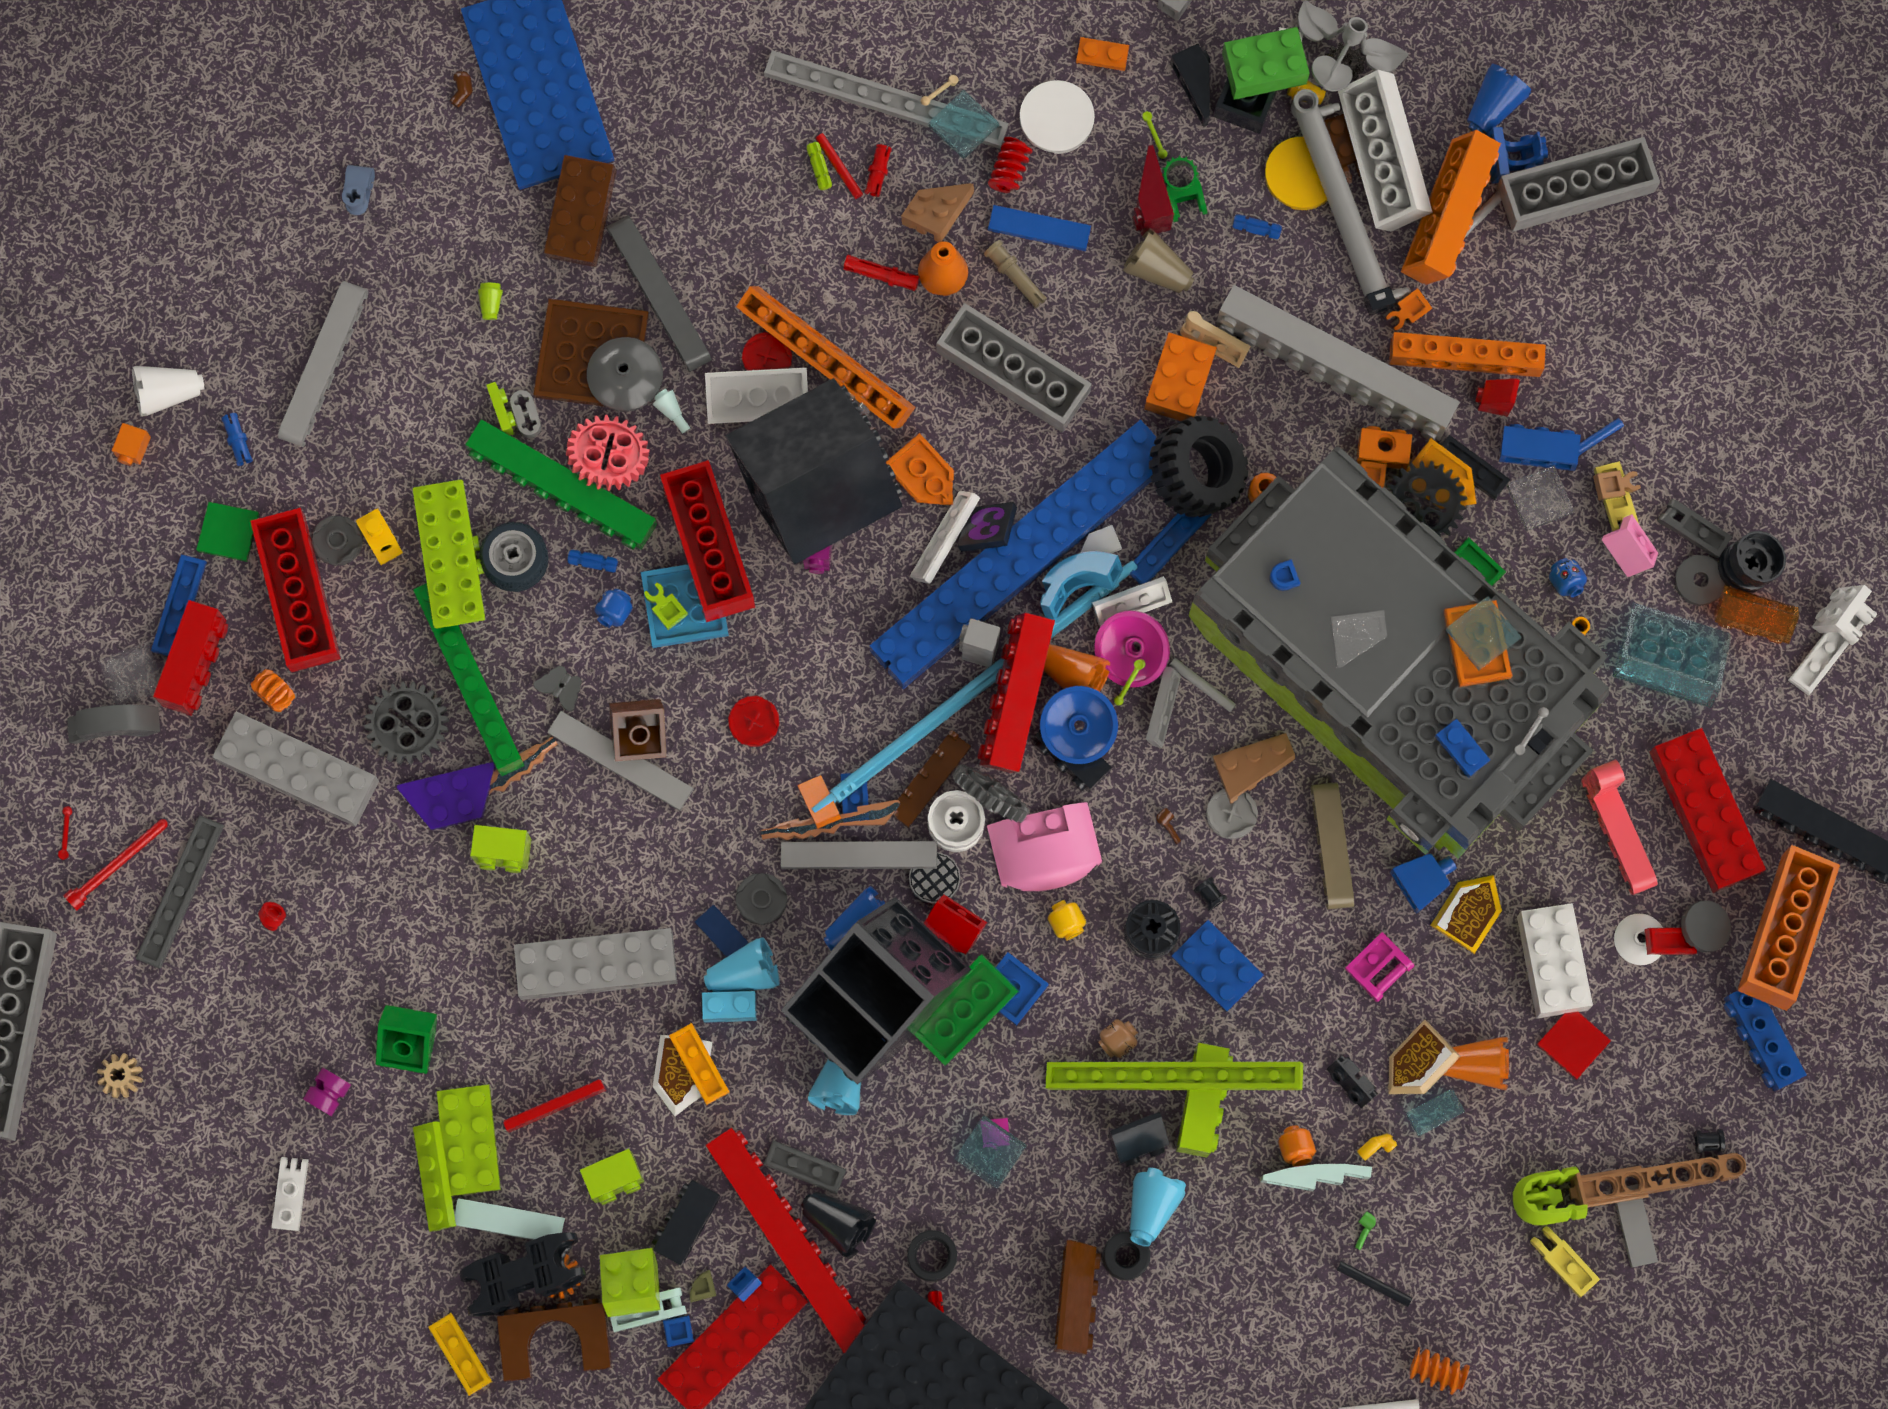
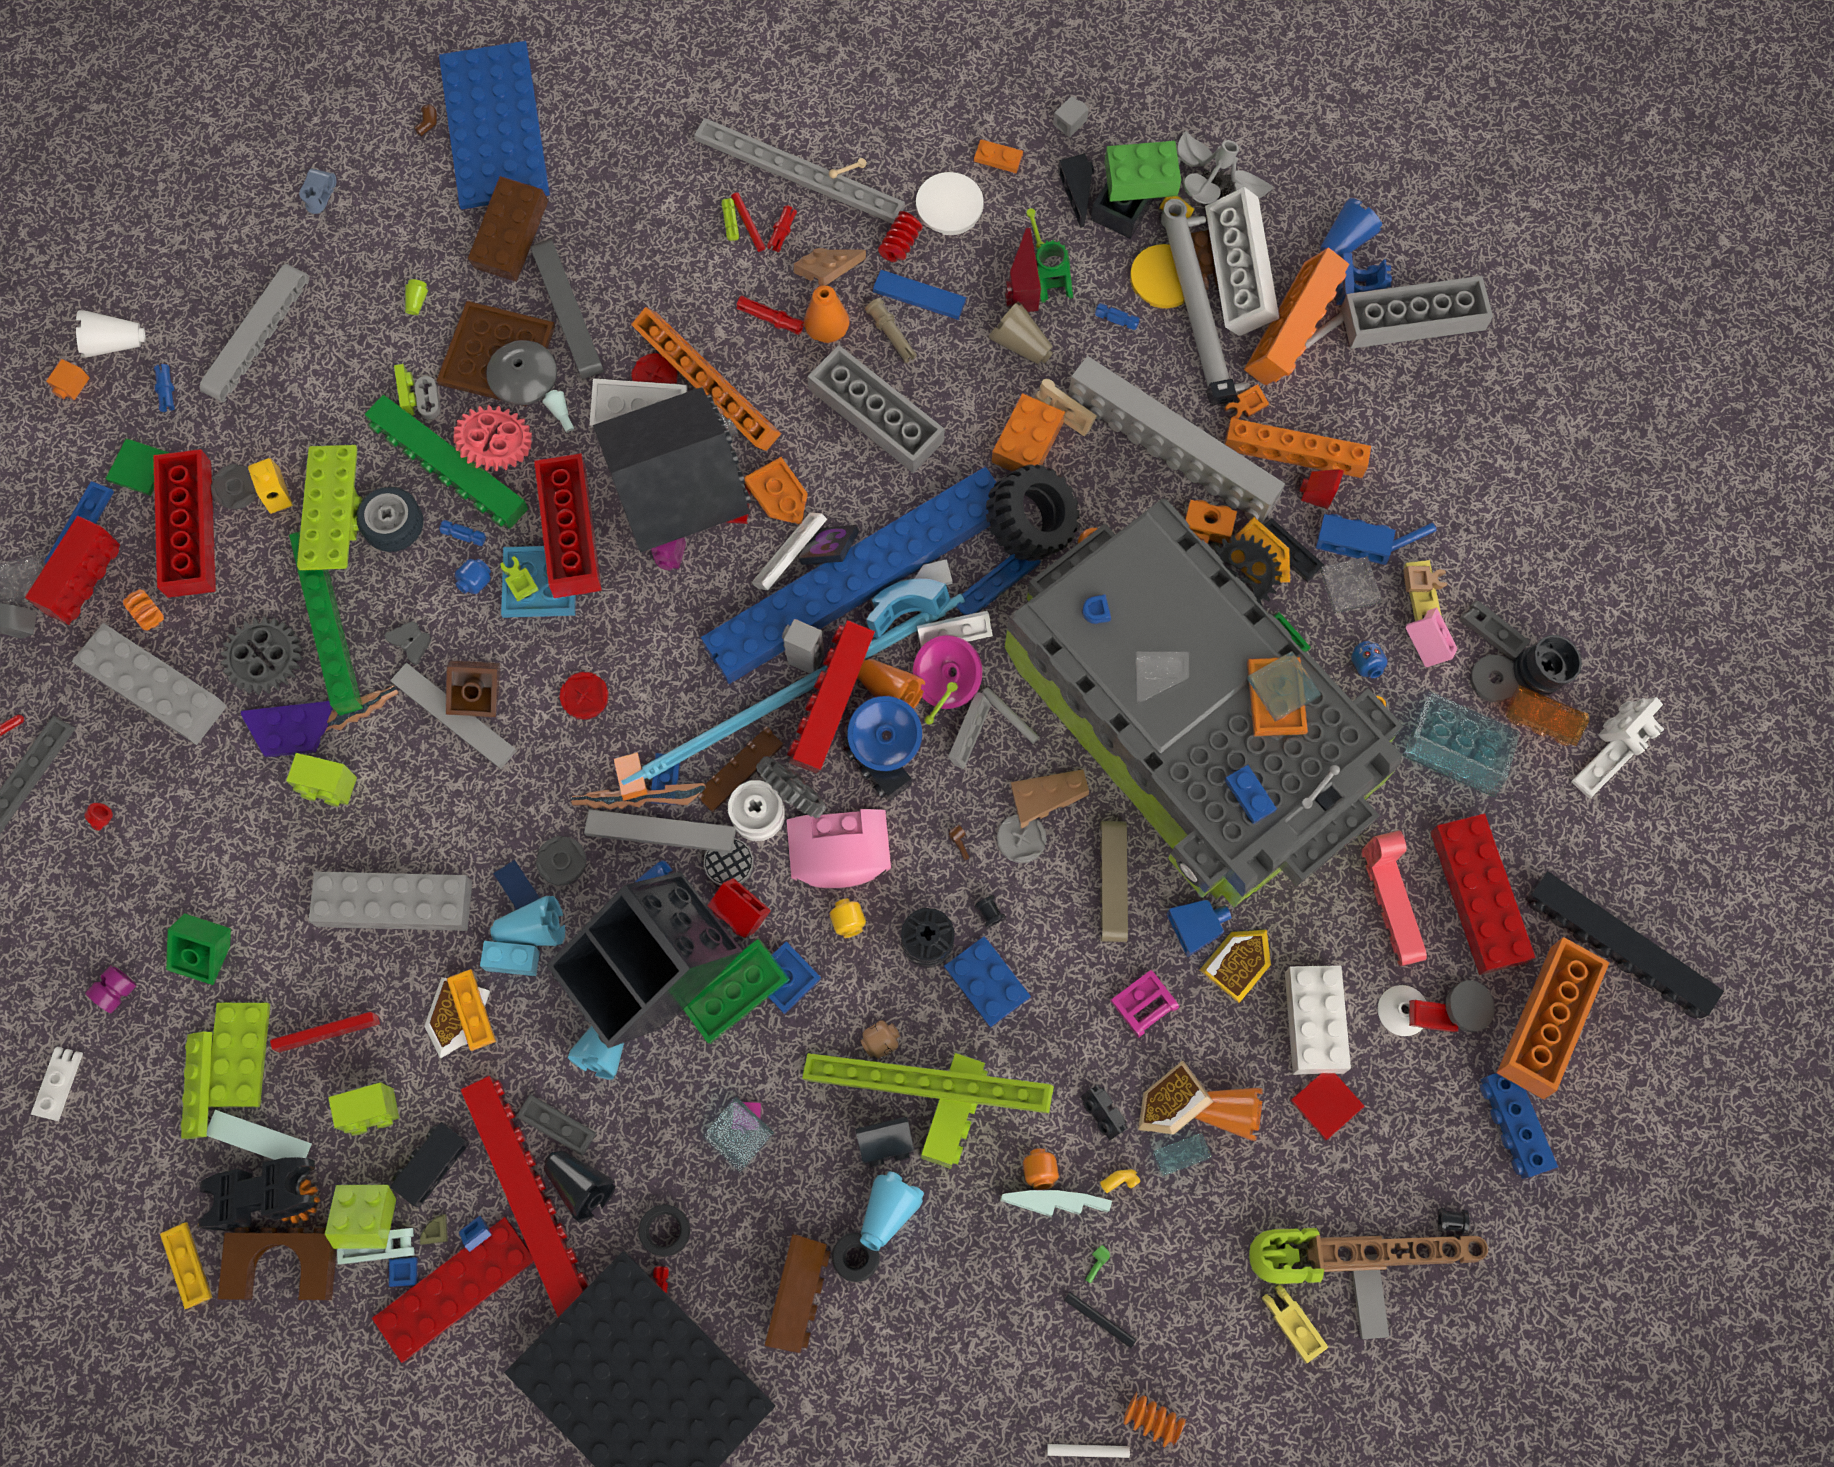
camera: 10 degrees right, 5 degrees down
(963, 124) = (864, 197): clear light blue tile -> none

